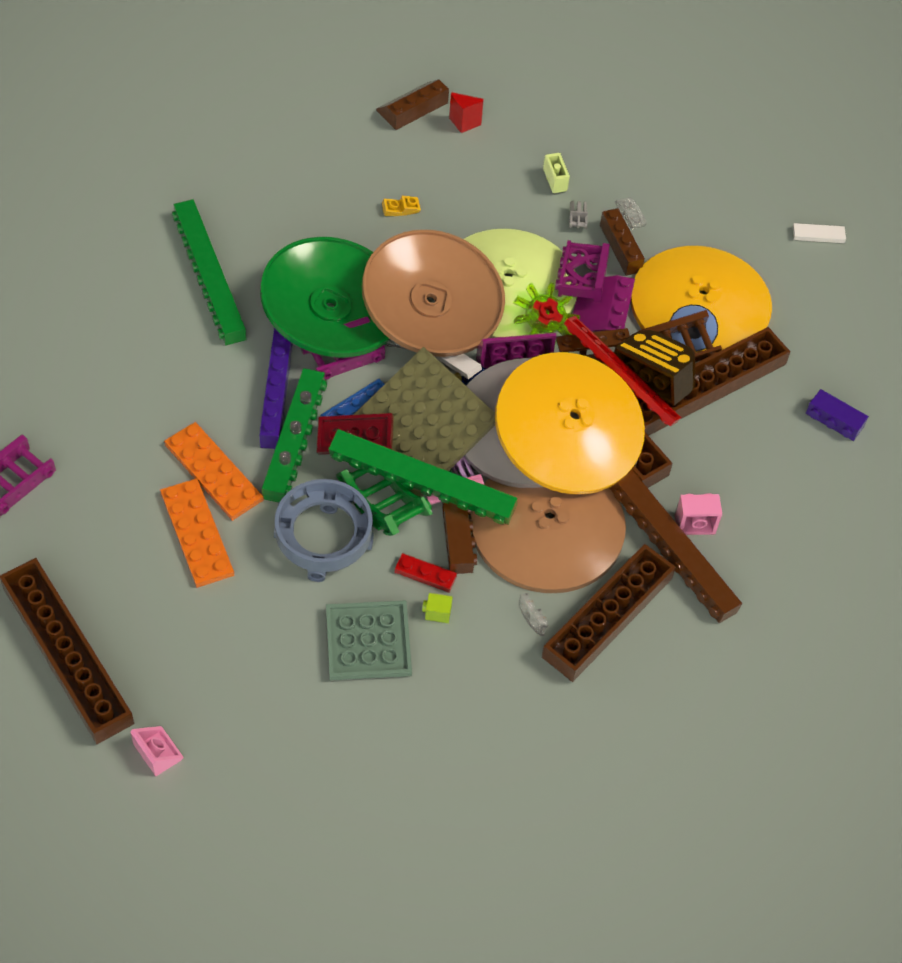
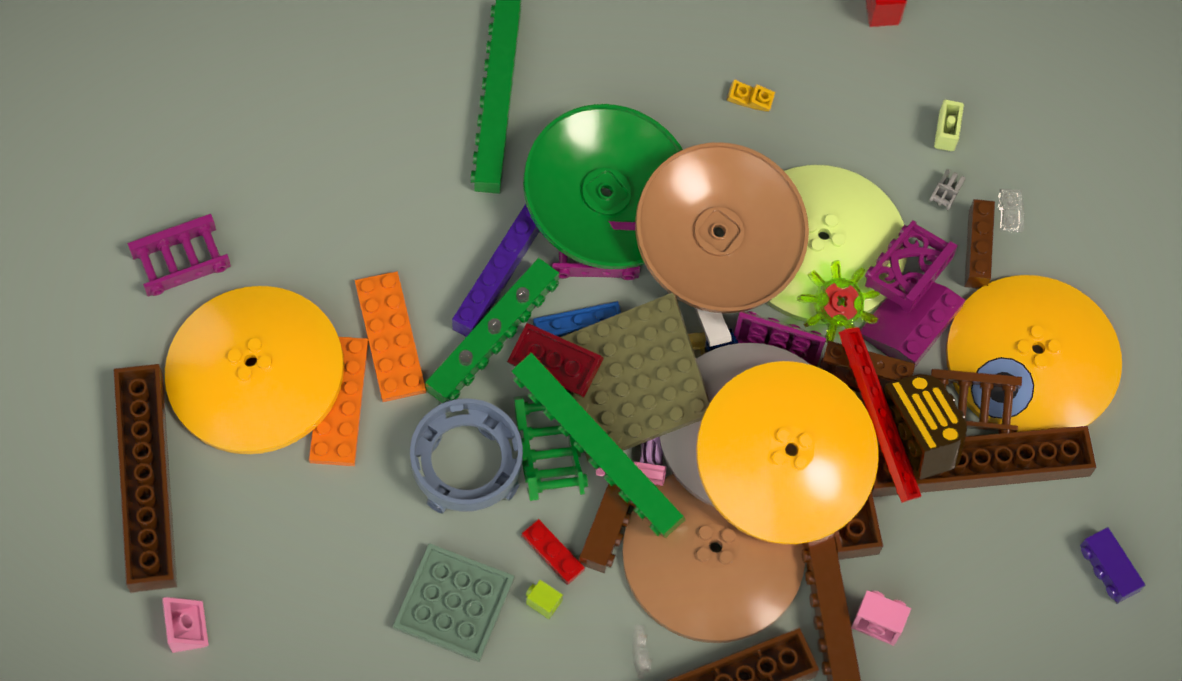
camera: 25 degrees right, 10 degrees up
(122, 563) = (259, 404): none -> yellow dish

